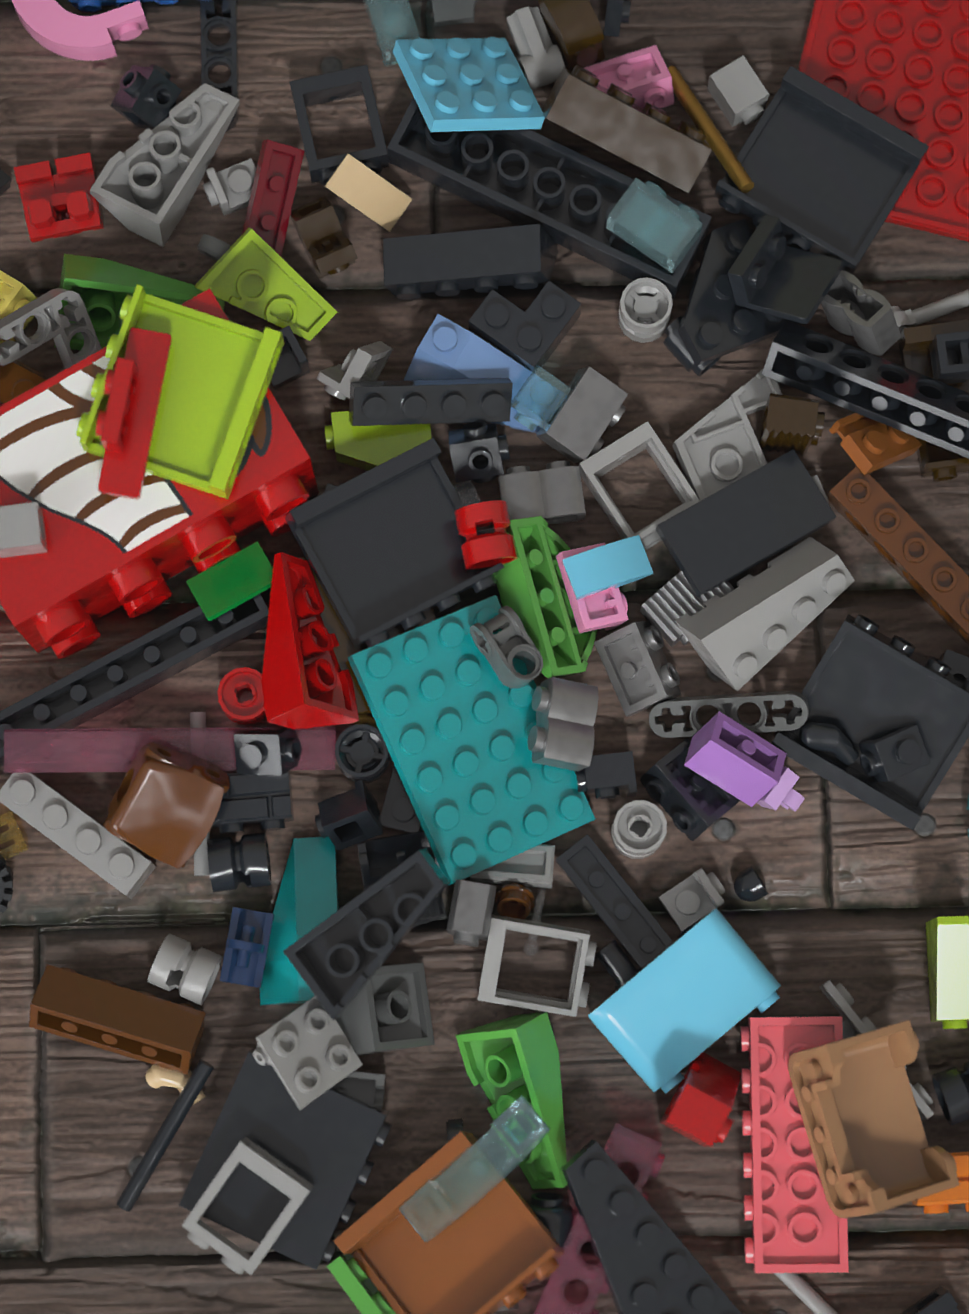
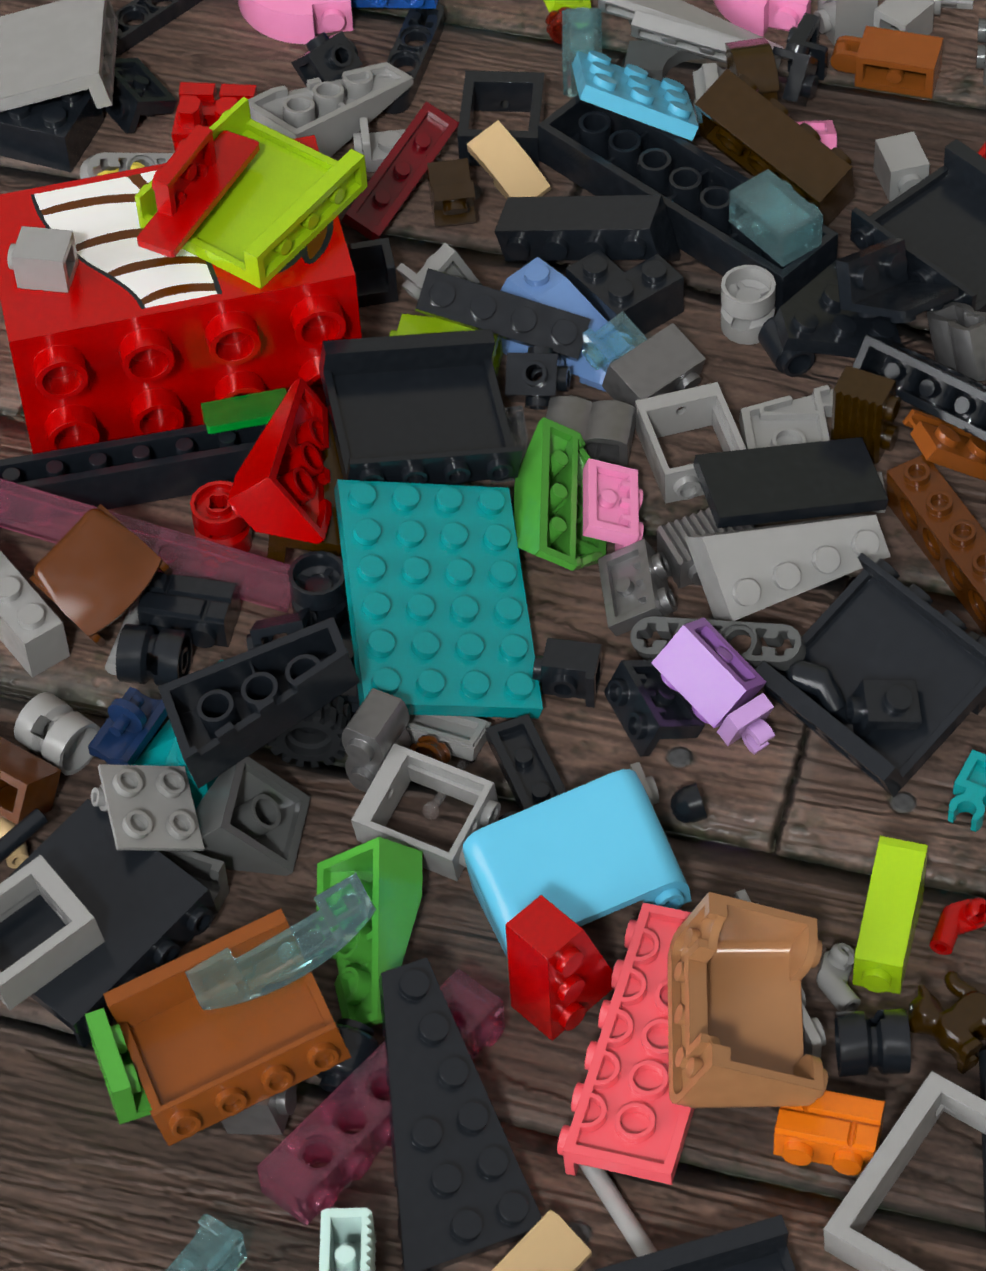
camera: 20 degrees right, 30 degrees down
(266, 751) = (223, 557): black bracket -> none
(267, 286) = (387, 212): lime wing -> none
(489, 548) = (515, 415): red wheel -> none
(506, 645) = (500, 519): dark grey piece -> none
(564, 724) = (536, 599): flat silver brick -> none
(607, 566) = (620, 475): medium azure slope -> none
(638, 829) = (584, 719): light grey wheel -> none
(714, 138) = (864, 190): pearl gold bar -> none
(917, 1012) = (834, 975): none -> light grey arm

